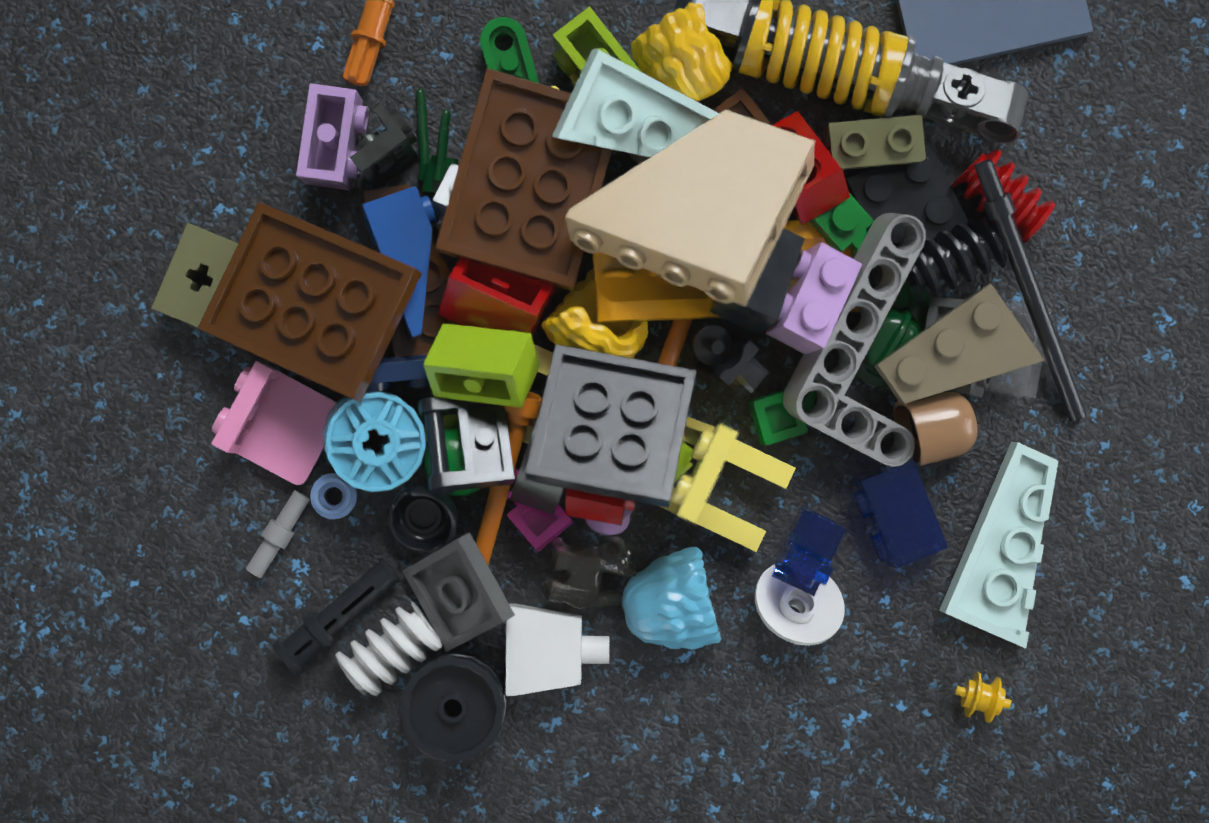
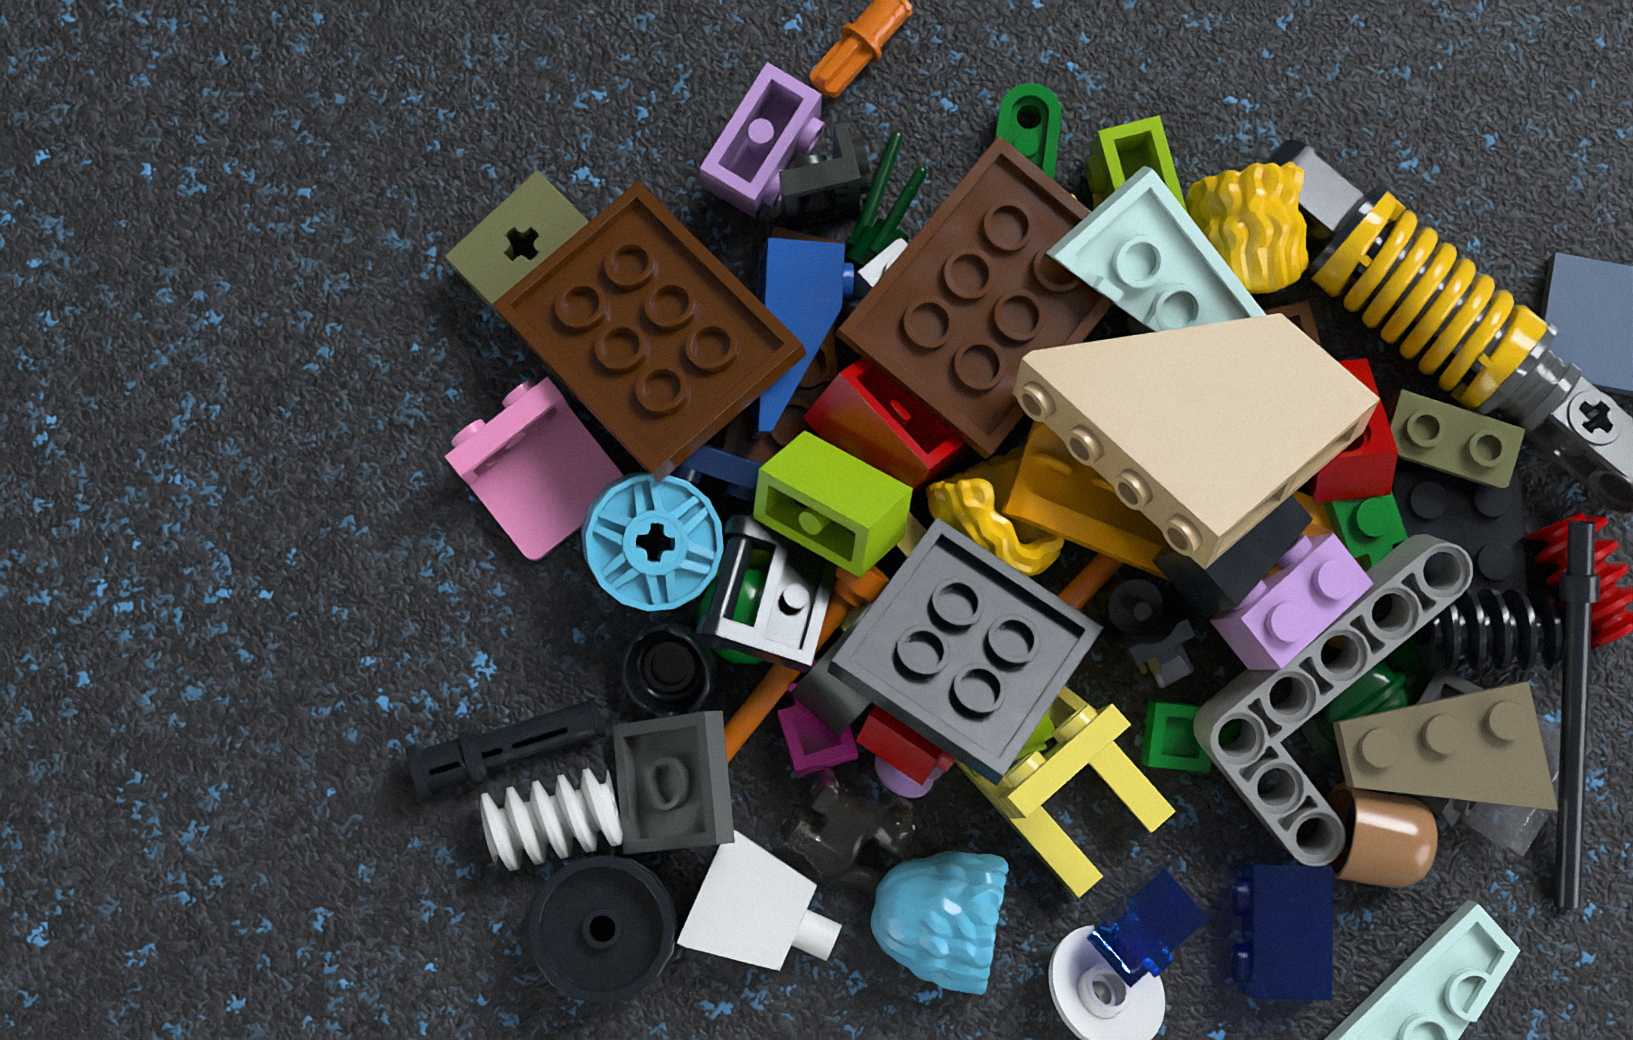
camera: 20 degrees right, 5 degrees down
(277, 534) = (475, 610): light grey bar -> none
(319, 497) = (558, 574): light blue plate -> none

